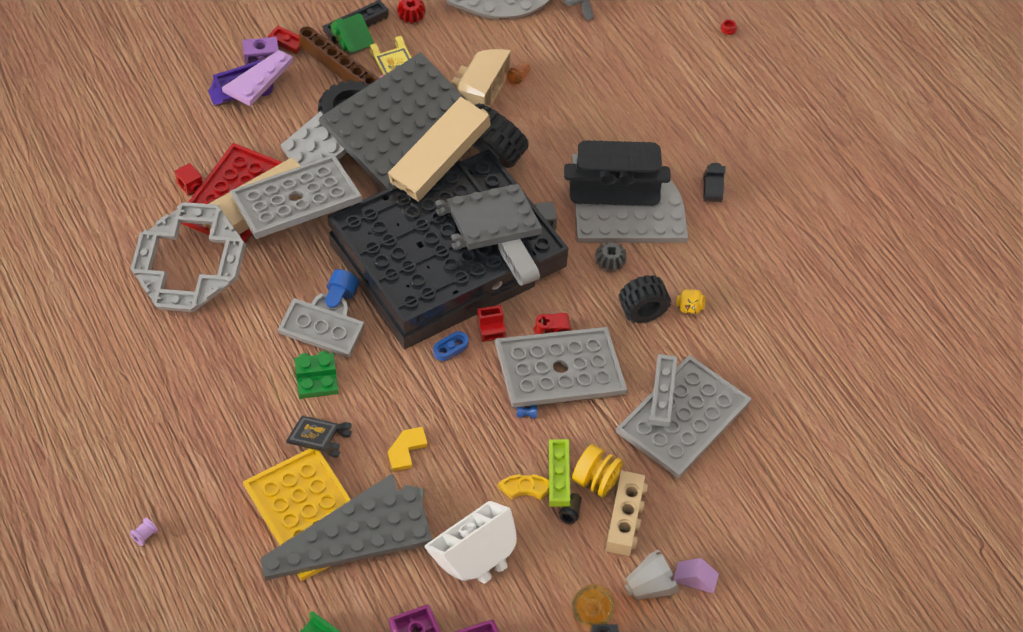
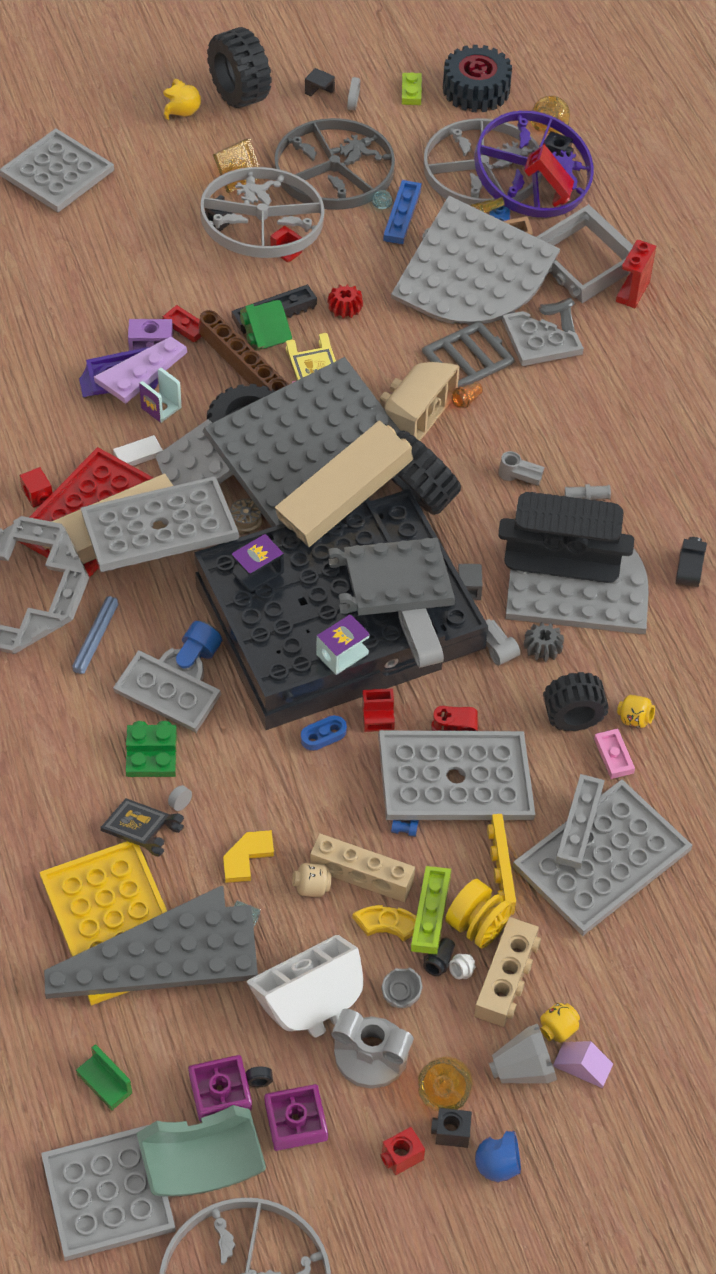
camera: 10 degrees right, 0 degrees up
(255, 290) = (95, 635): none -> sand blue axle
(266, 143) = (138, 451): none -> white tile
(283, 95) = (168, 393): none -> light aqua piece
(345, 410) = (179, 798): none -> light grey tile
(363, 183) = (246, 516): none -> tan wheel
(382, 218) = (258, 562): none -> piece
(446, 619) = (259, 1076): none -> black tile
(458, 274) = (342, 644): none -> piece
(461, 461) = (311, 880): none -> tan head
(495, 34) = (463, 334): none -> dark grey bar
(499, 446) = (363, 867): none -> tan brick
(527, 598) = (366, 1064): none -> light grey piece
(546, 535) = (402, 987): none -> light grey hair
(564, 125) = (513, 467): none -> light grey piece
(567, 25) = (539, 340): none -> light grey plate
(578, 264) = (500, 646): none -> light grey piece
(590, 513) = (462, 966): none -> white plate
(605, 423) = (500, 854): none -> yellow plate
(635, 137) = (589, 492): none -> light grey pin
(673, 546) = (559, 1022): none -> yellow head
(679, 336) = (614, 753): none -> bright pink plate

